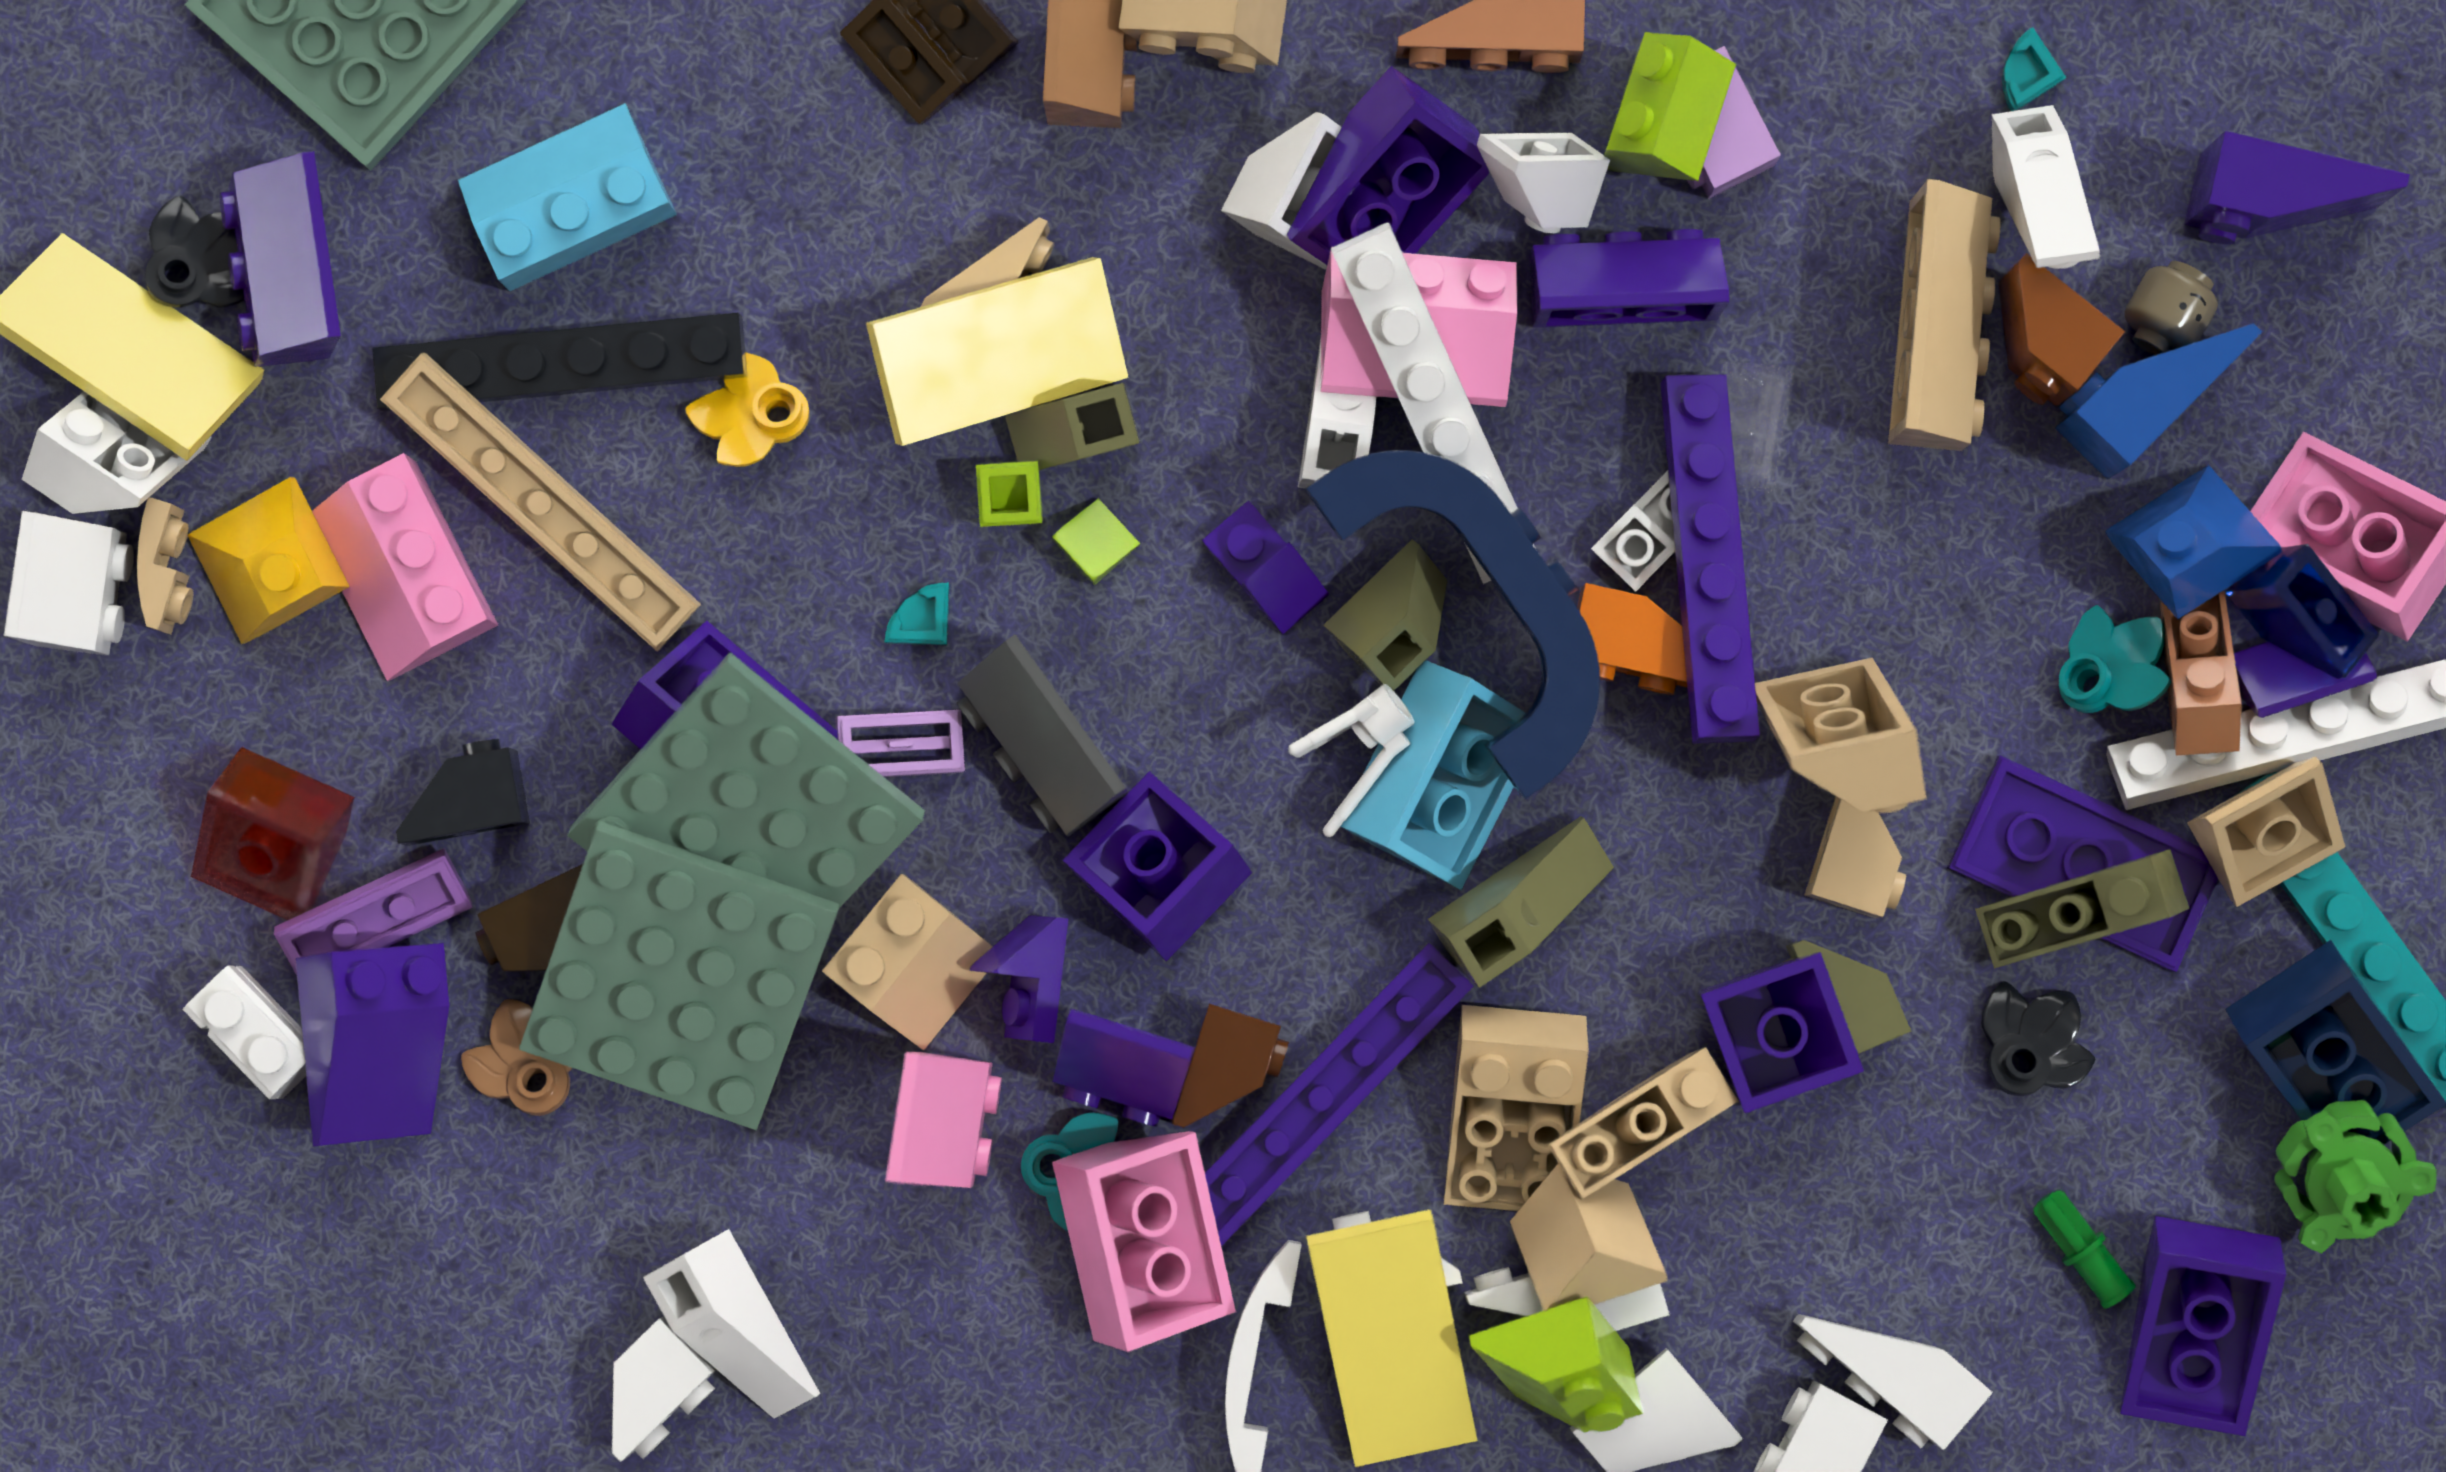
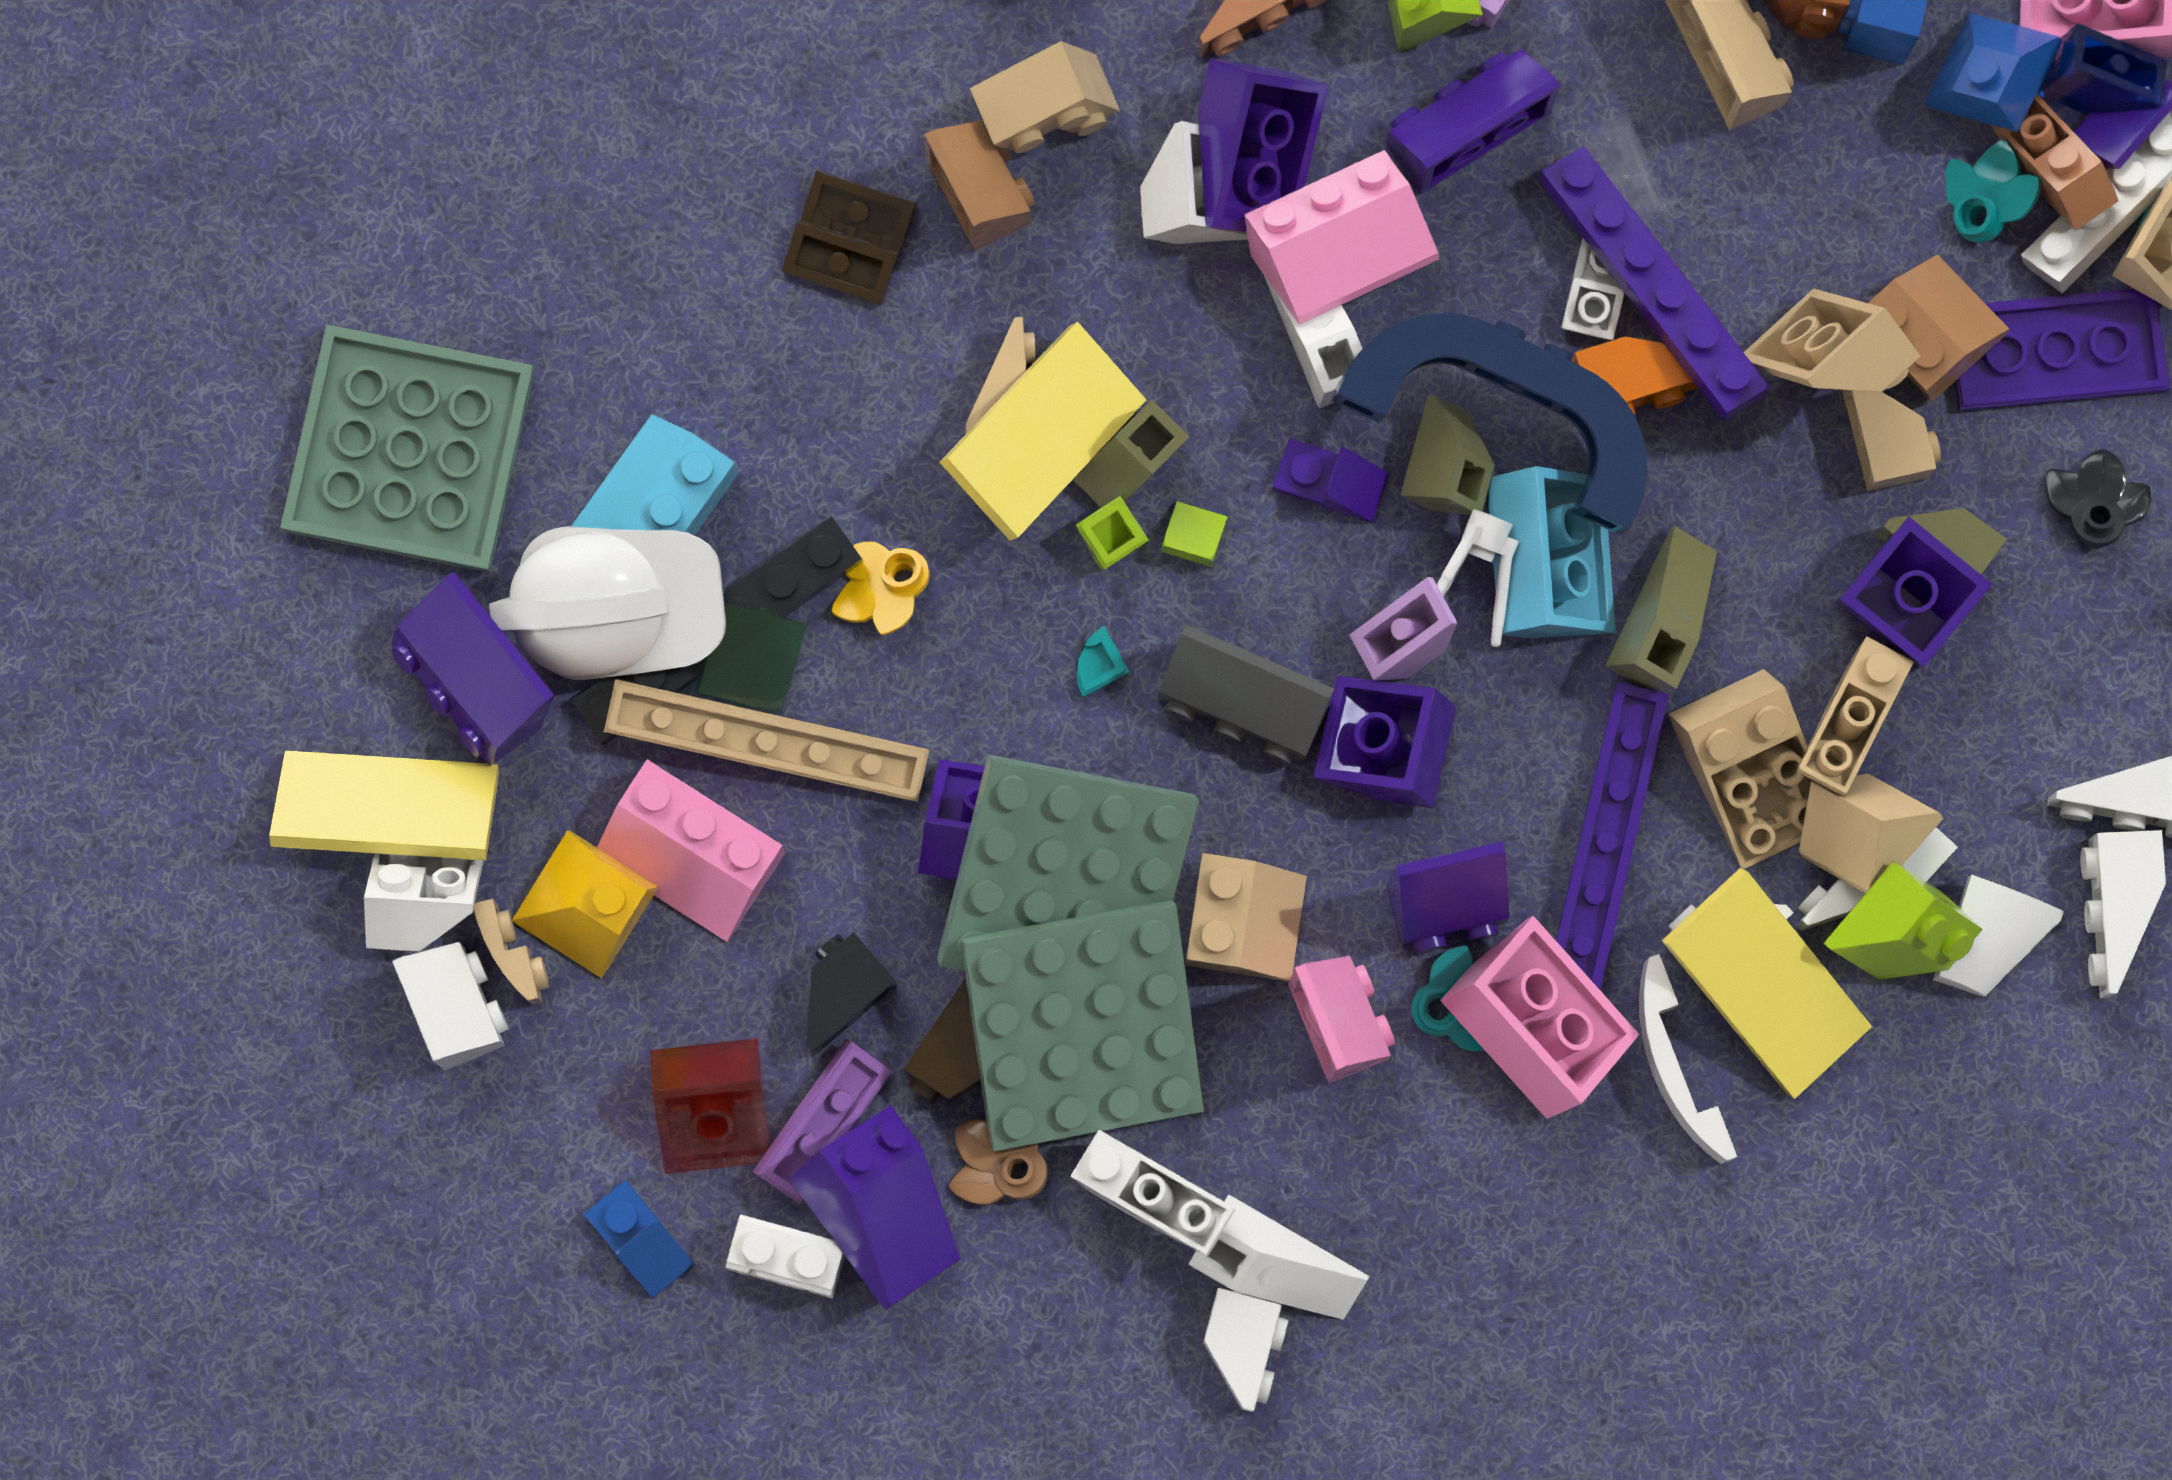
camera: 35 degrees left, 5 degrees down
(125, 927) = (639, 1239): none -> blue slope
(199, 248) = (397, 702): black plate -> none
(463, 274) = (615, 601): none -> white piece
(574, 409) = (753, 659): none -> clear green piece
(647, 1185) = (1152, 1193): none -> white slope
(953, 741) = (1177, 740): lavender tile -> none
(1035, 962) = (1337, 866): dark purple slope -> none
(1228, 1062) = (1531, 850): reddish brown slope -> none
(1237, 770) = (1406, 633): none -> lavender slope
(1416, 357) = (1355, 257): white plate -> none
(1546, 176) = (1369, 76): white slope -> none
(1975, 767) = (1942, 322): none -> medium nougat slope
(2082, 909) = (2074, 380): olive slope -> none

